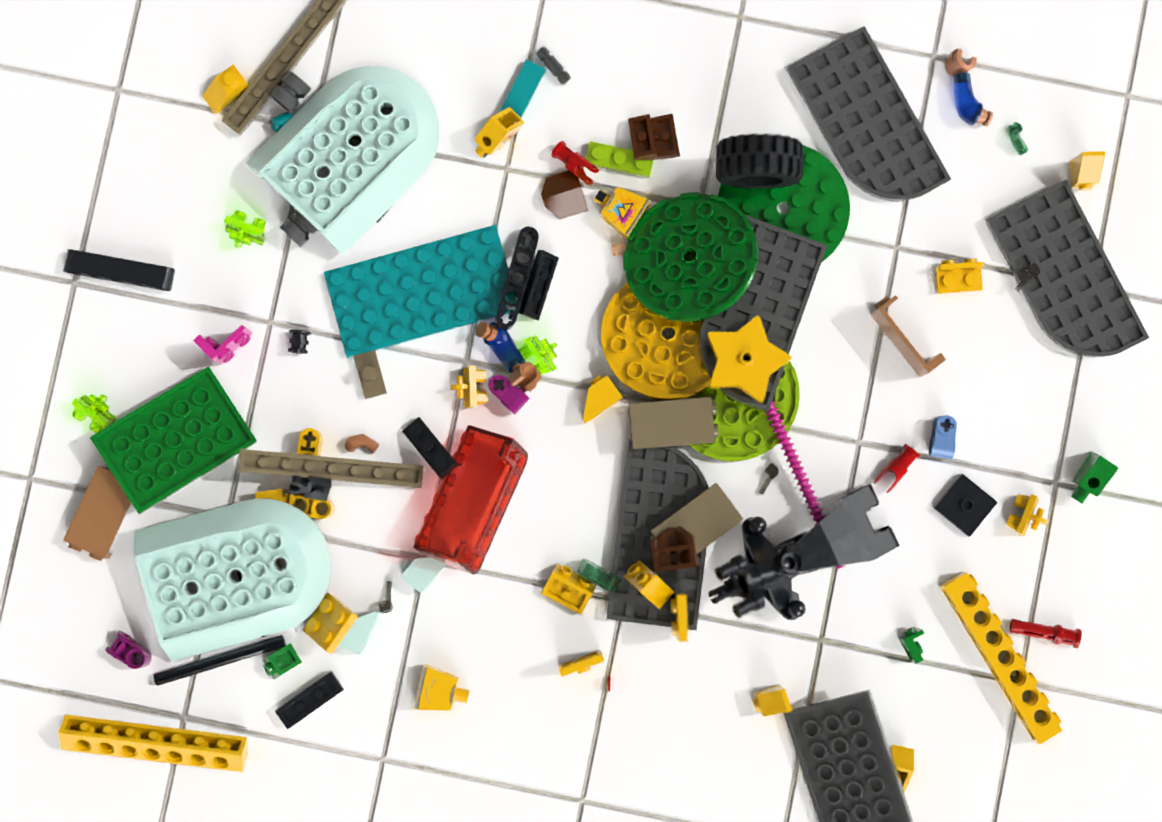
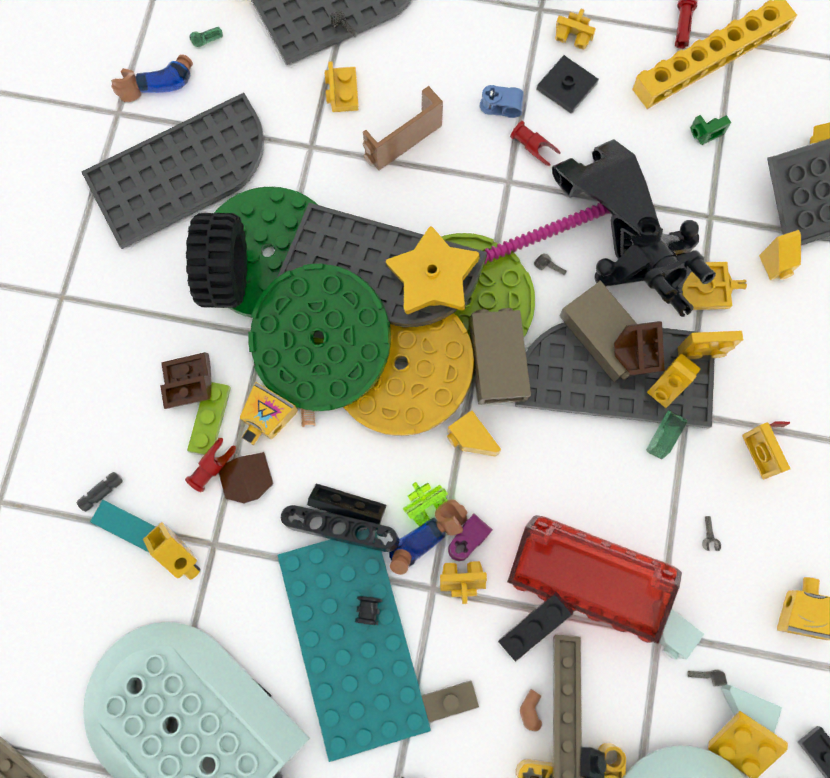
camera: 85 degrees left, 10 degrees down
(445, 303) = (368, 610): none -> black bush
(509, 611) = (710, 536): none -> clear smoke hand
(569, 588) = (681, 468): yellow bracket -> none
(746, 633) = (715, 293): none -> yellow plate

